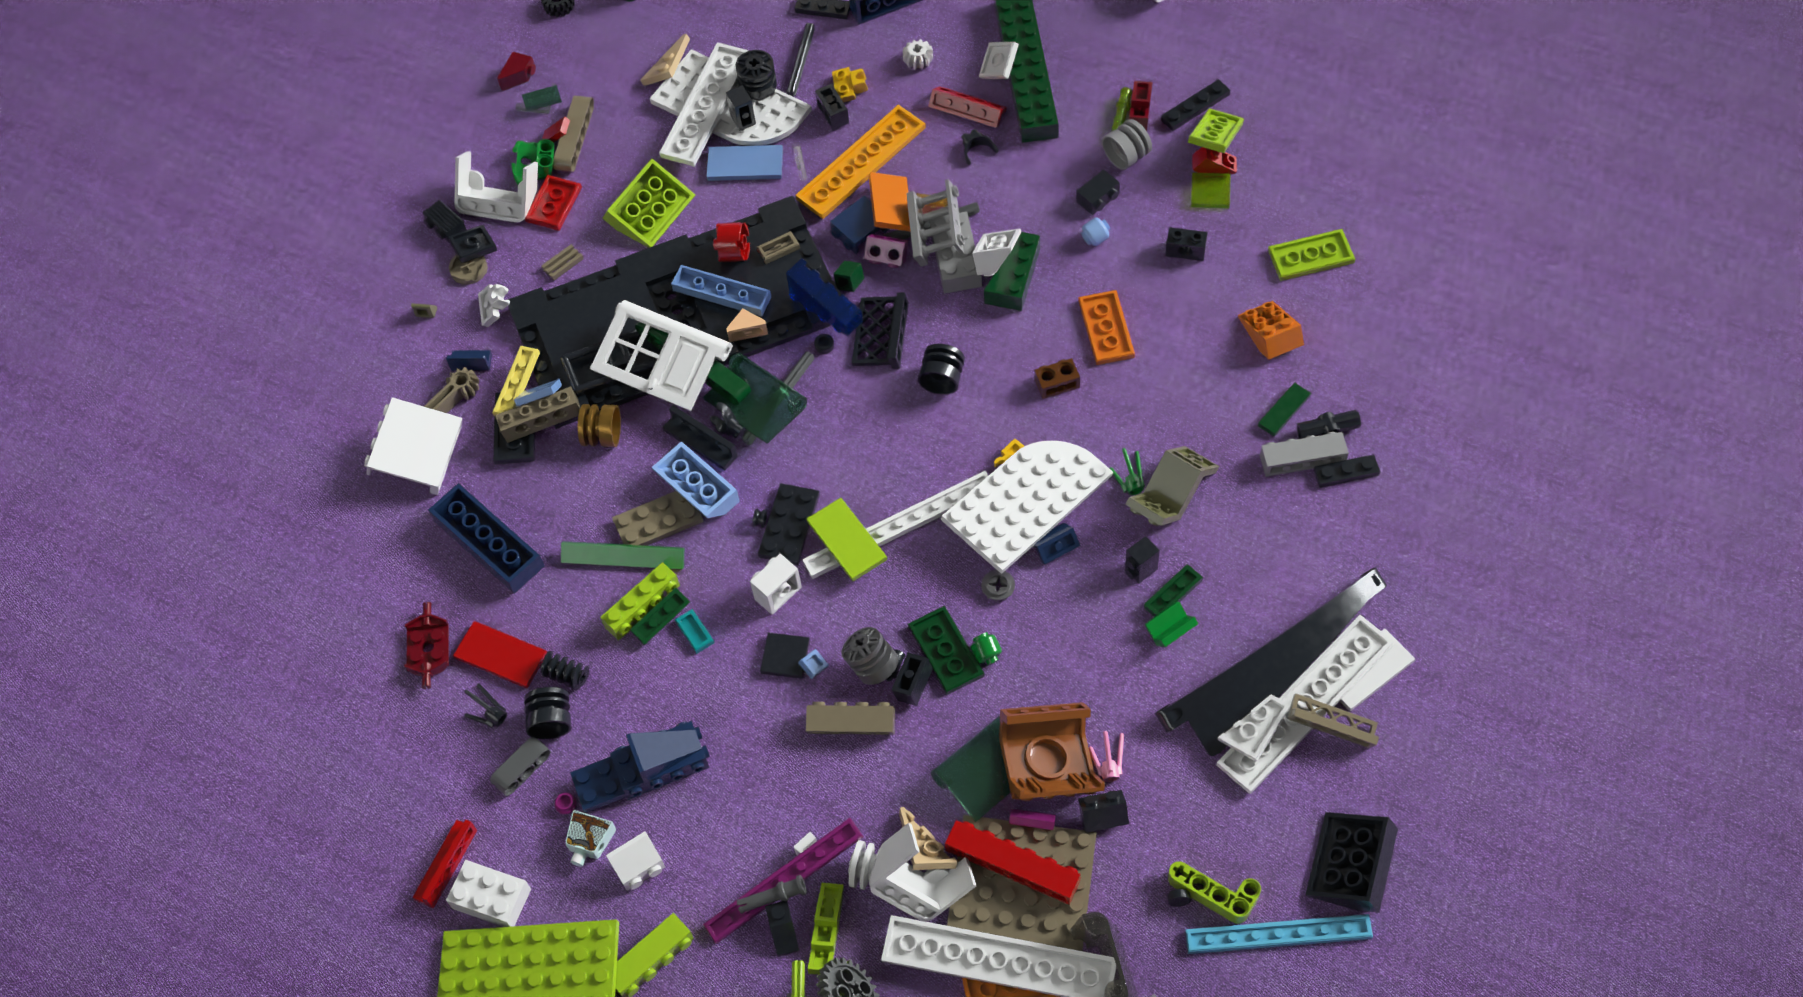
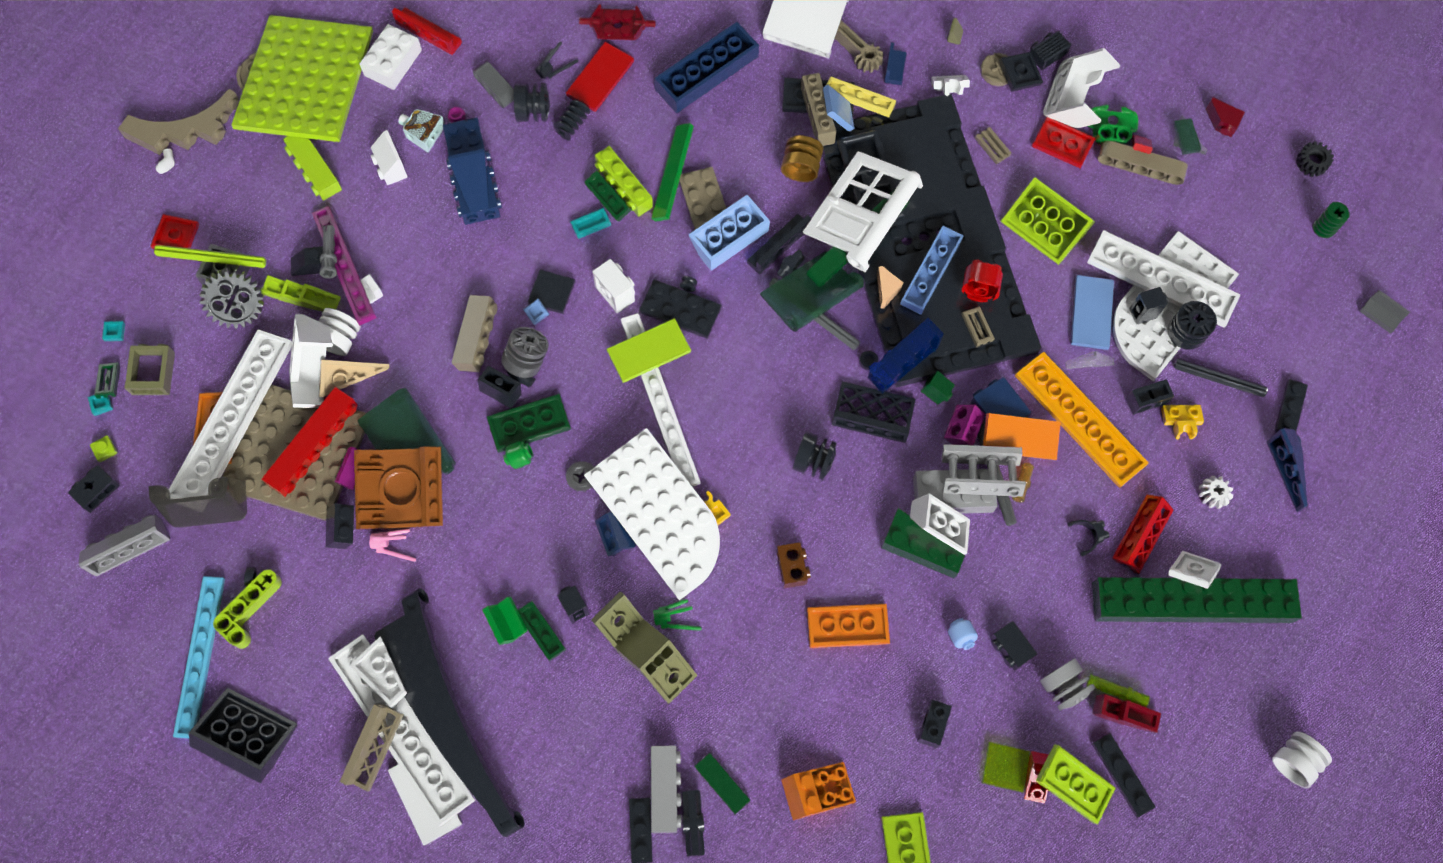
camera: 90 degrees right, 10 degrees up
(667, 63) = (1217, 248): tan wing -> none

